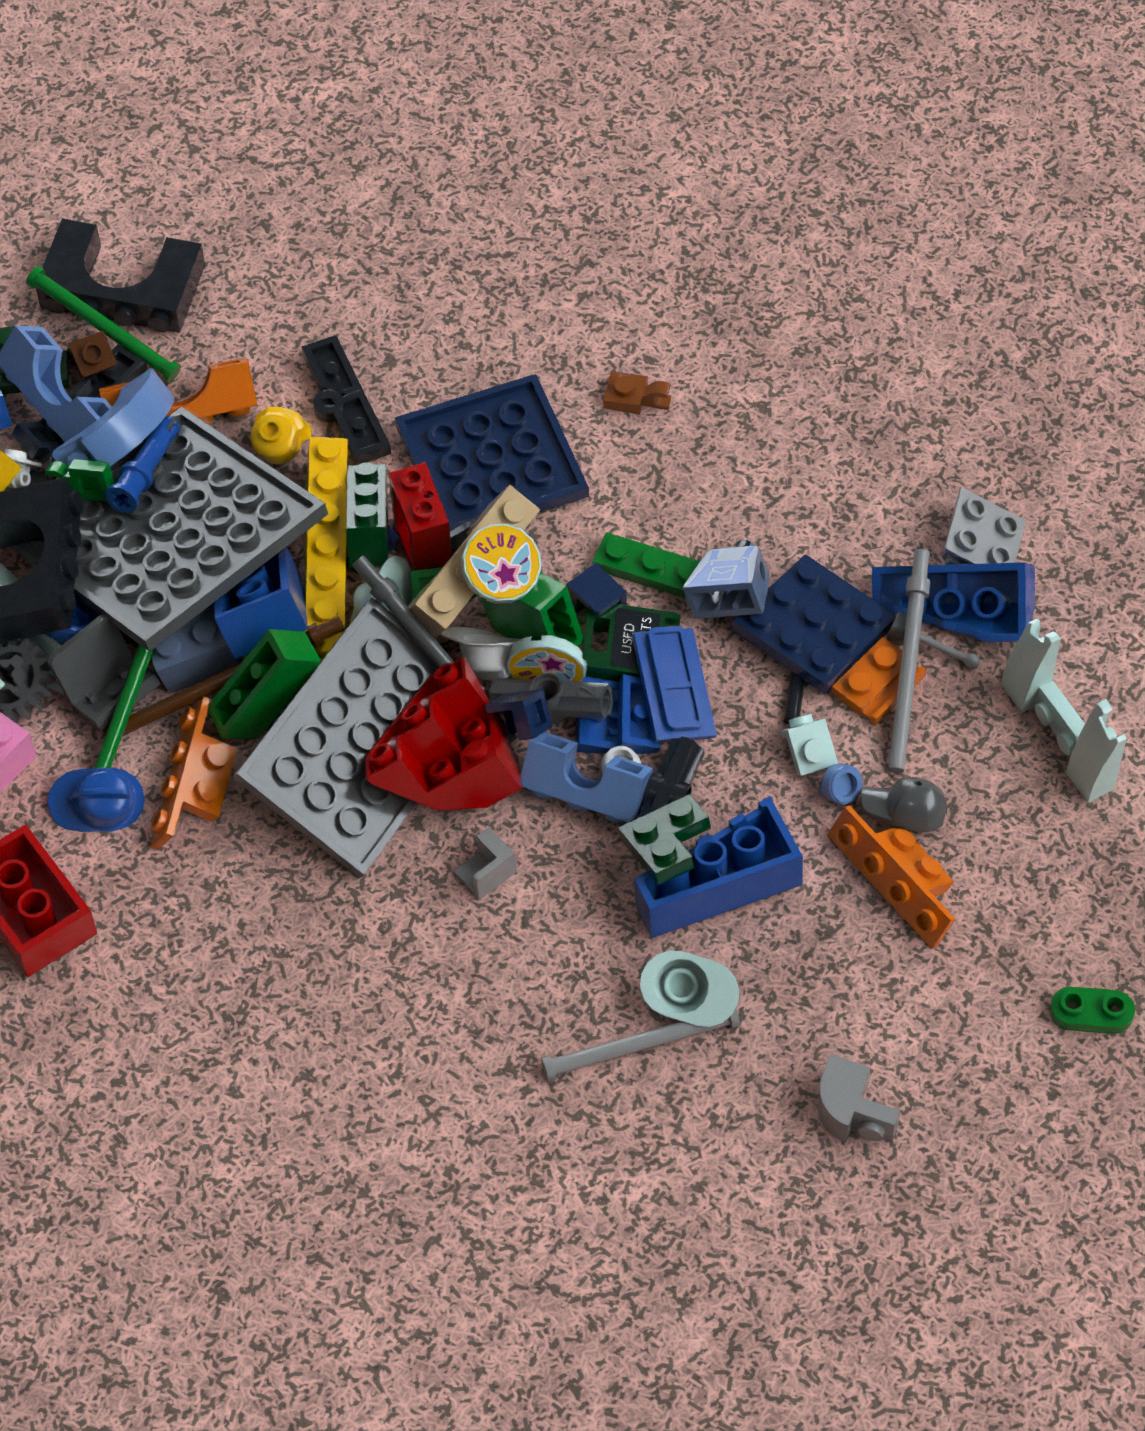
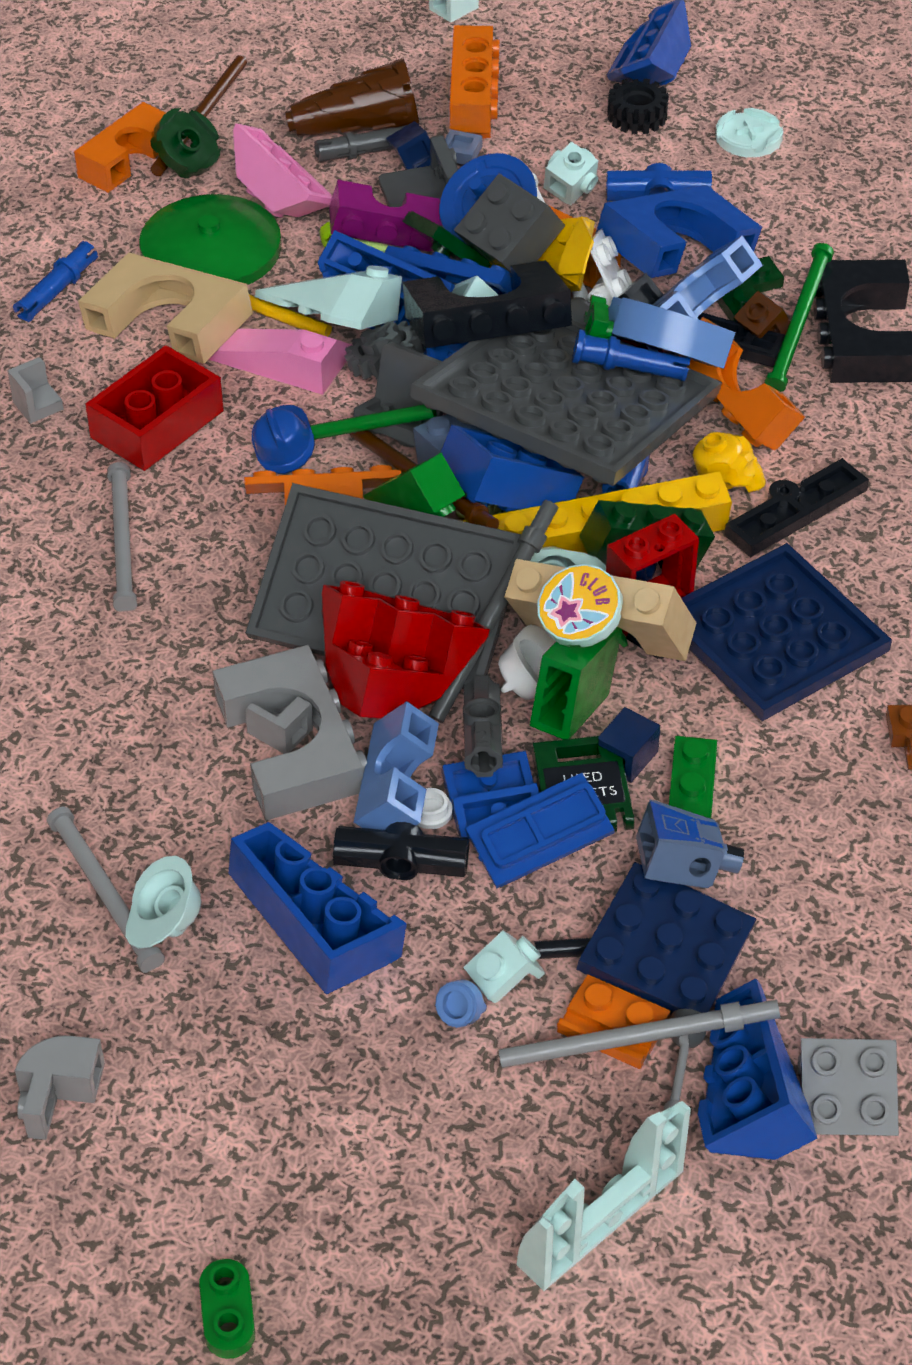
camera: 75 degrees right, 10 degrees down
(190, 966) = (124, 598): none -> light grey bar
(524, 712) = (443, 695): dark blue panel -> none
(548, 828) = (323, 768): none -> light grey arch
(549, 655) = (519, 710): tile -> none
(658, 838) = (327, 831): plate -> none
(898, 871) = (367, 1084): orange bracket -> none
(908, 804) = (448, 1070): dark grey cap -> none

